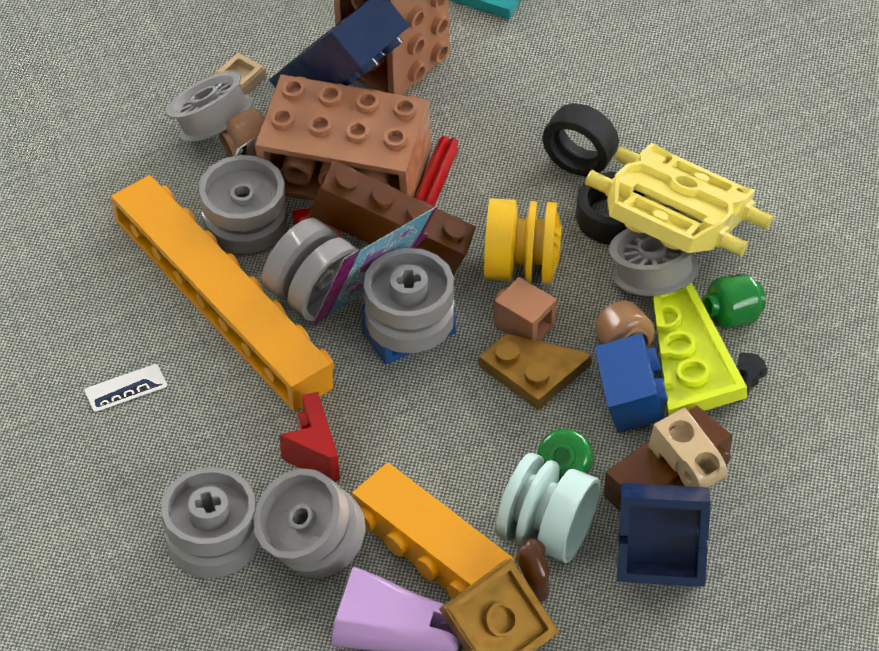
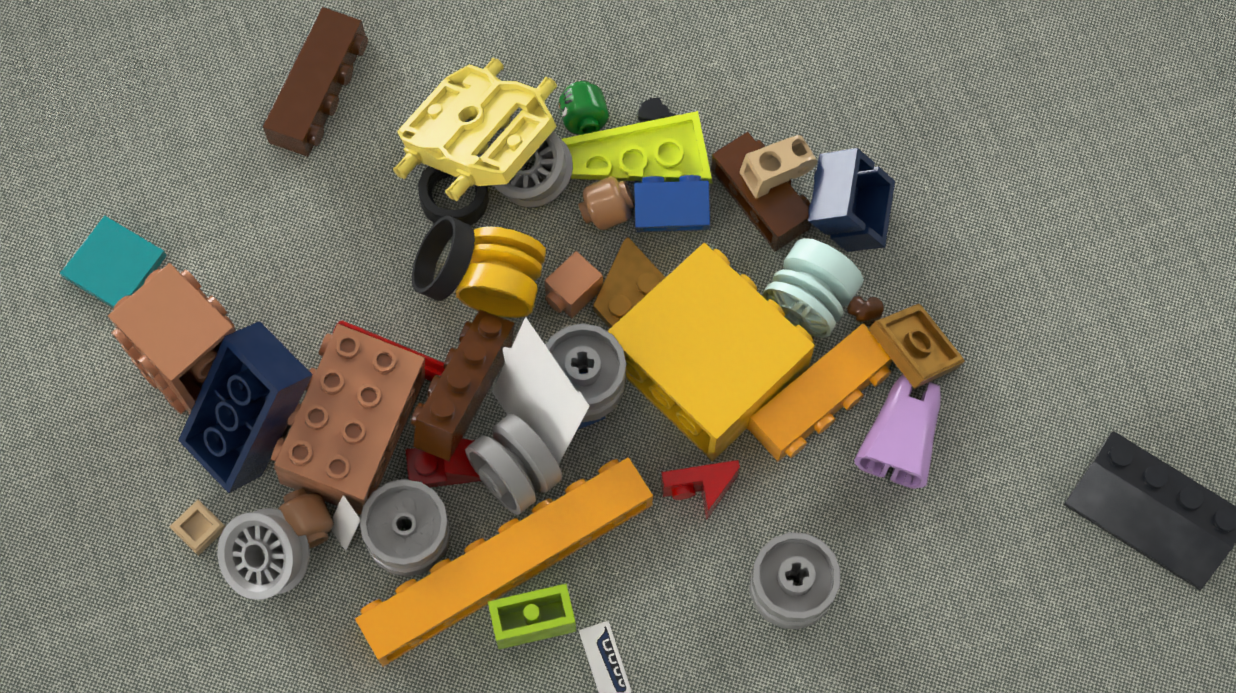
camera: 85 degrees left, 20 degrees up
(160, 308) = (532, 616): none -> lime brick
(309, 523) = (812, 509): light grey wheel -> none
(457, 414) = (710, 349): none -> yellow brick
(530, 188) = (455, 264): none -> black tyre
(568, 449) = (756, 262): green head -> none
(588, 123) = (374, 204): black tyre -> none
(714, 88) = (315, 82): none -> reddish brown brick

